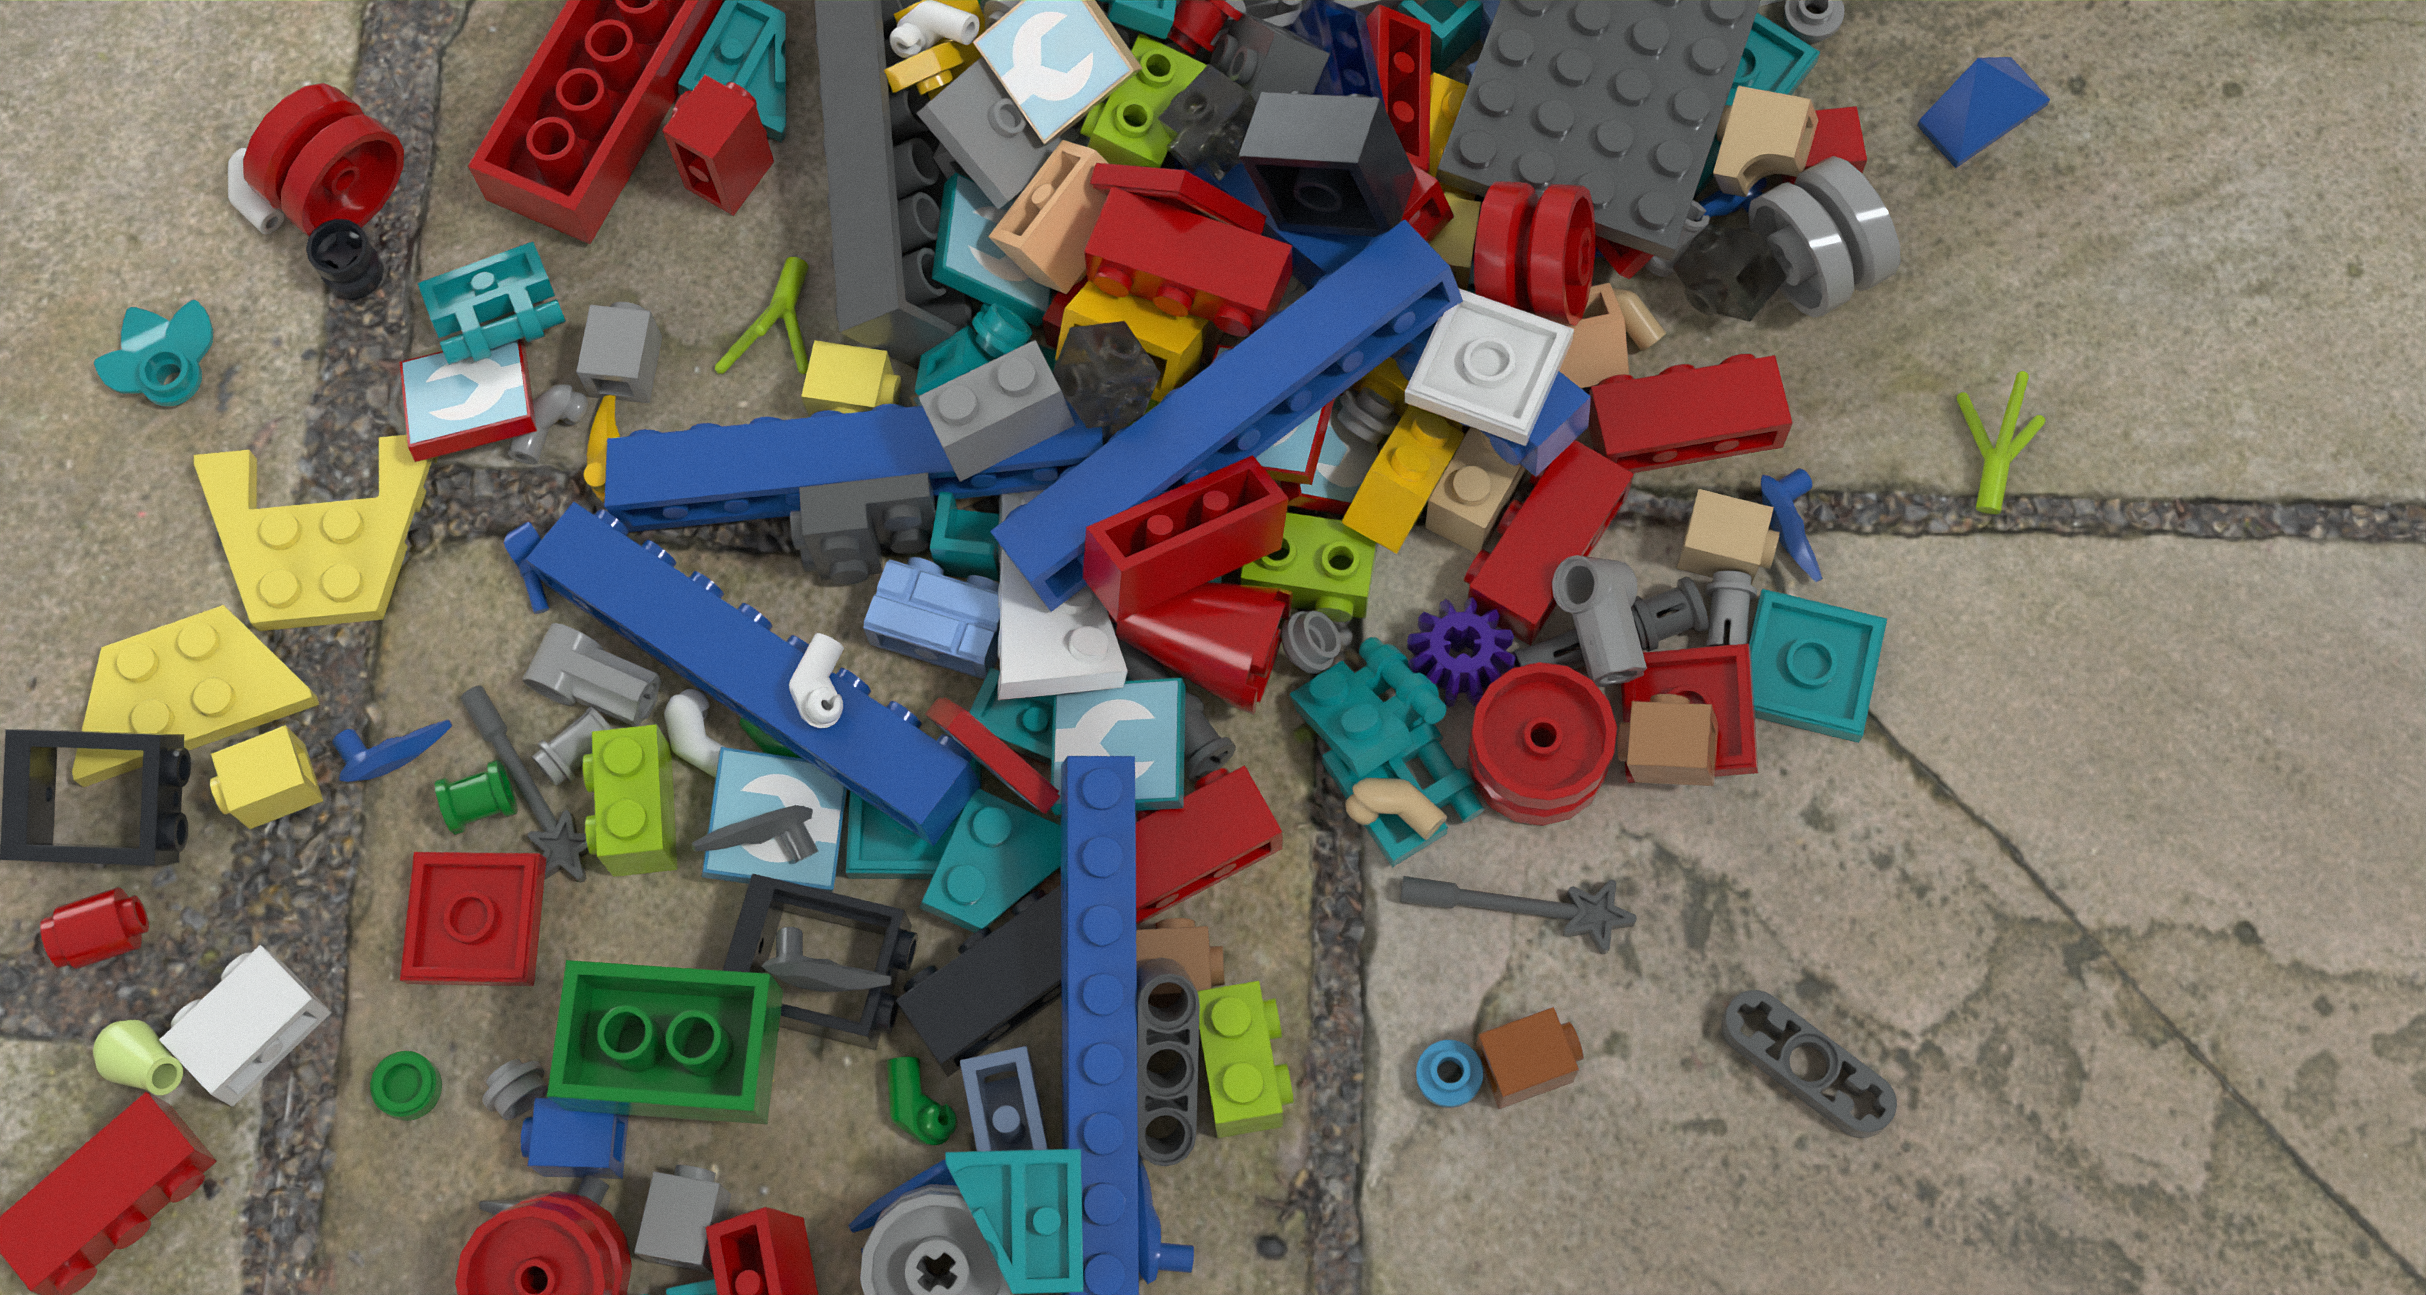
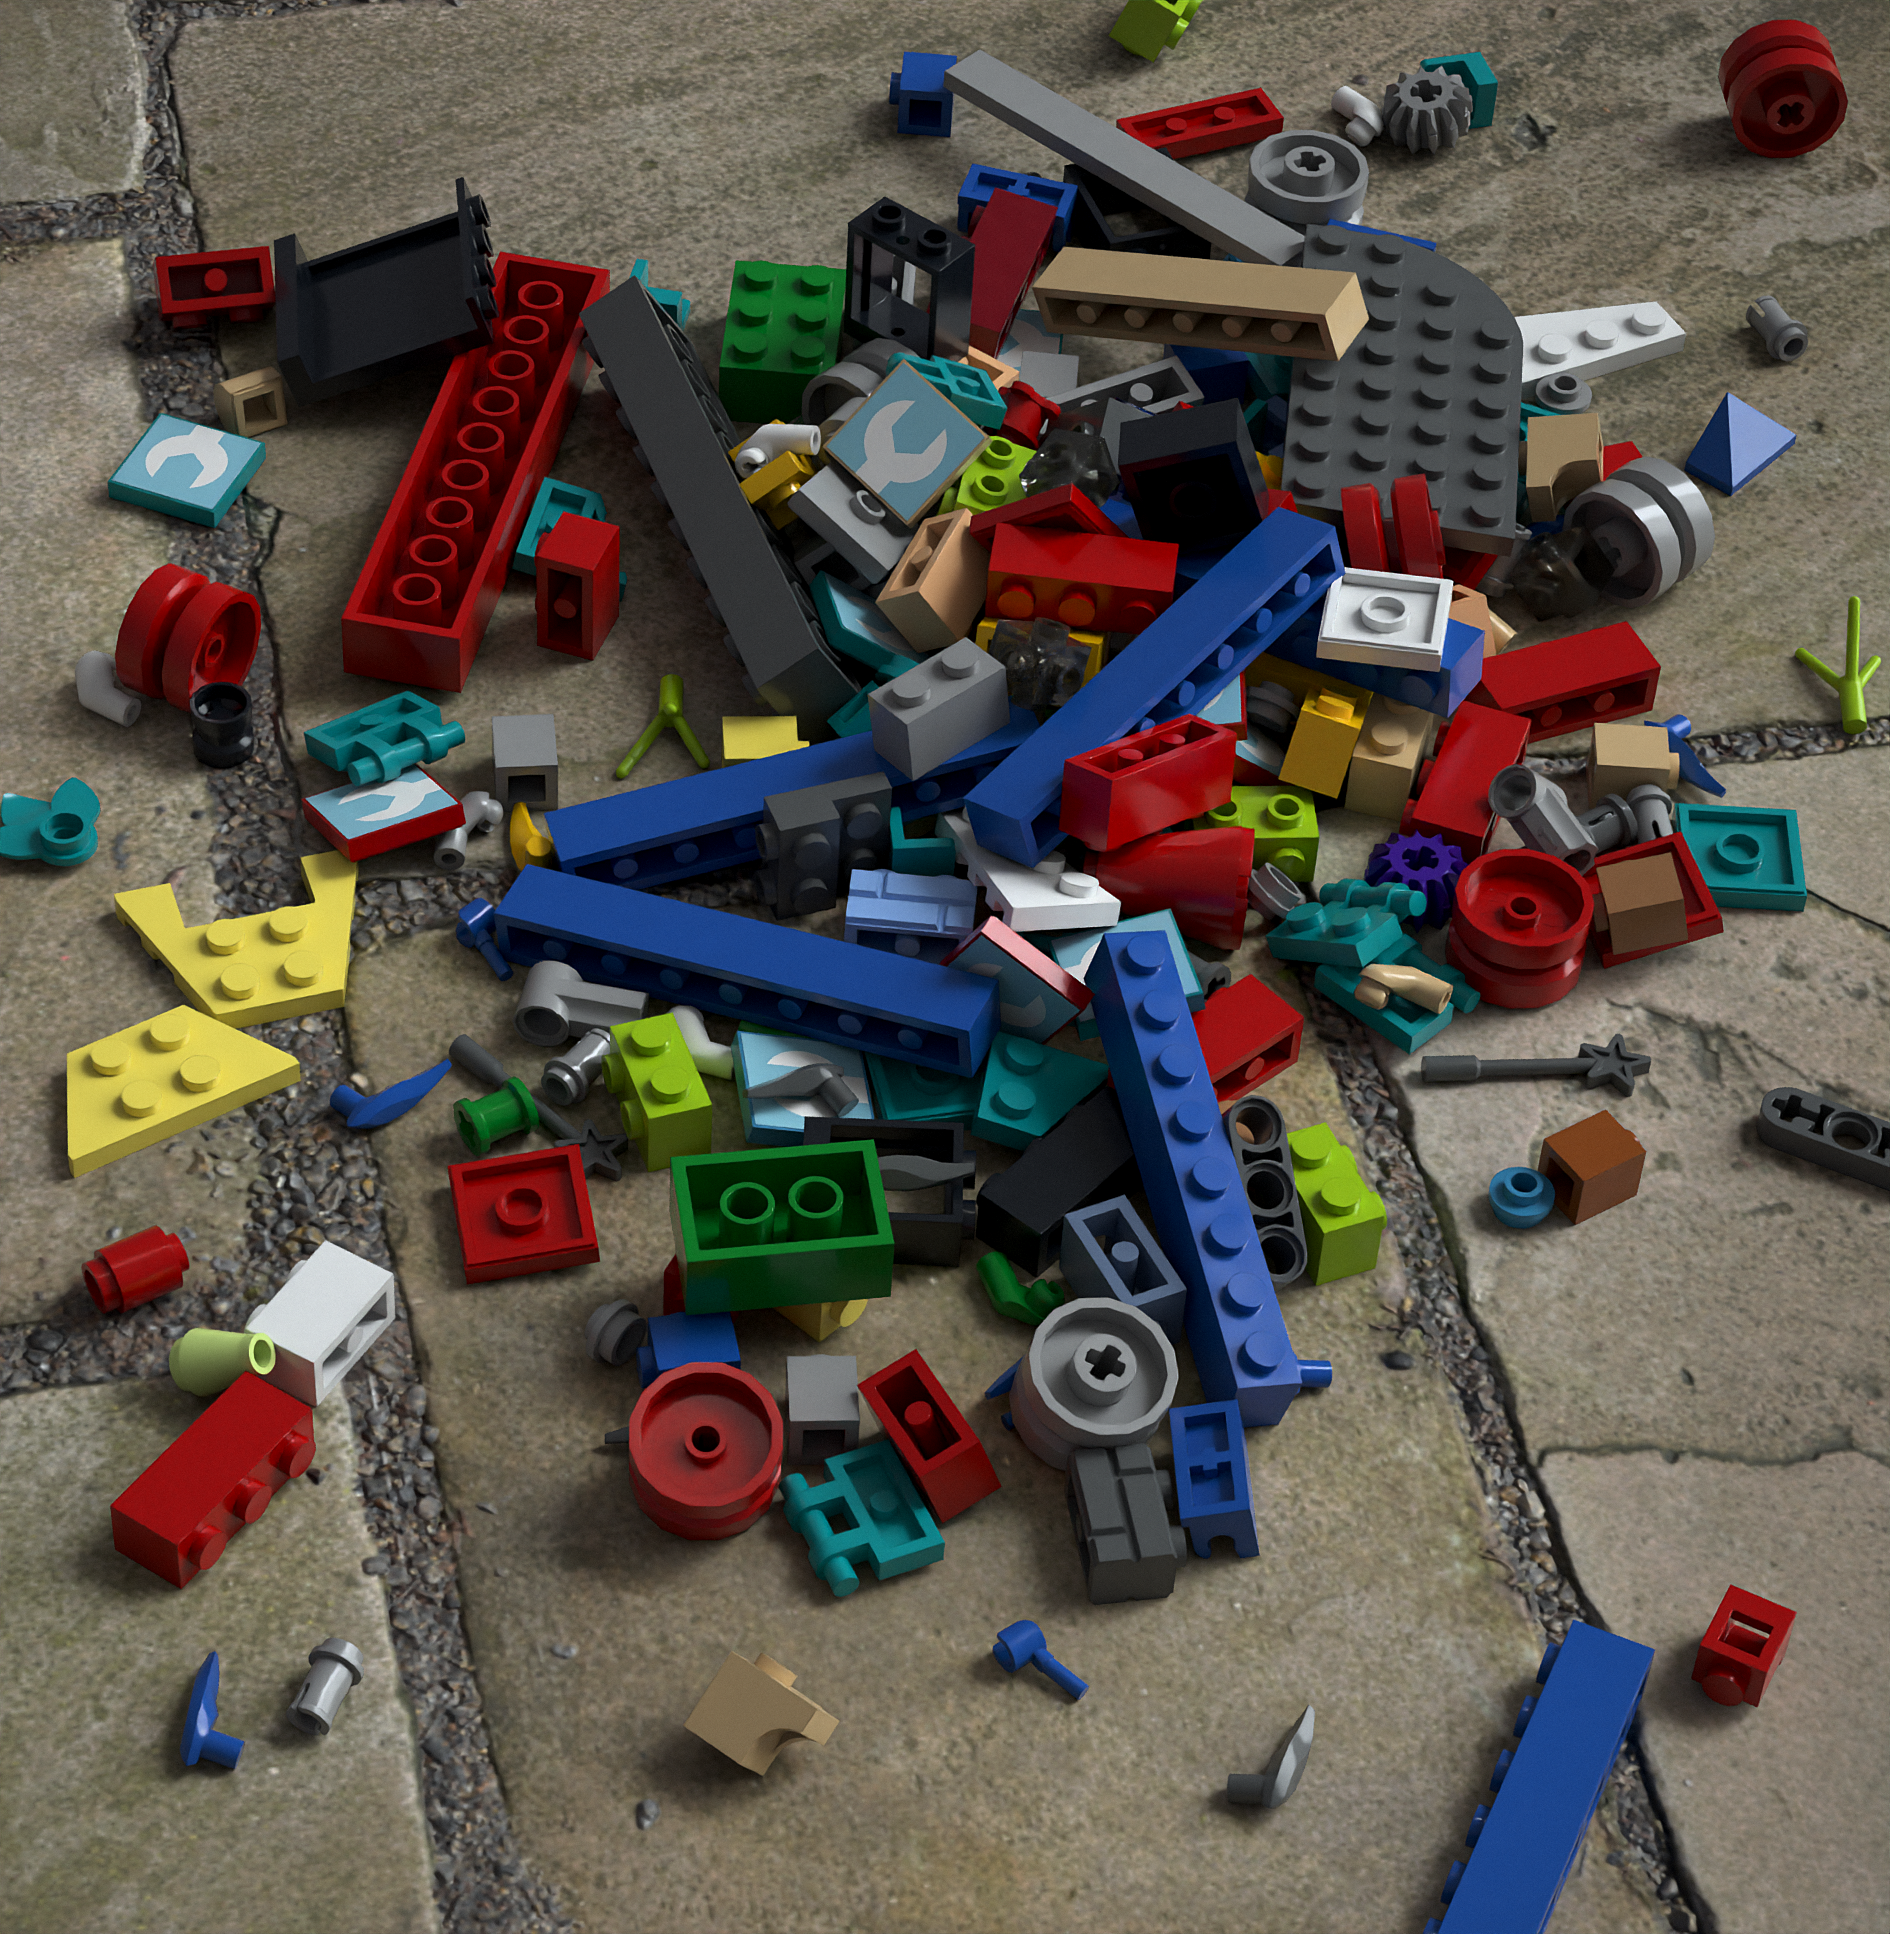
camera: 20 degrees left, 25 degrees down
(31, 791) = (112, 1209): black window -> none
(264, 778) = (280, 1121): light yellow brick -> none
(406, 1085) = (495, 1357): green tile -> none
(811, 683) = (828, 944): white arm -> none
(1027, 1214) = (1178, 1296): teal wing -> none

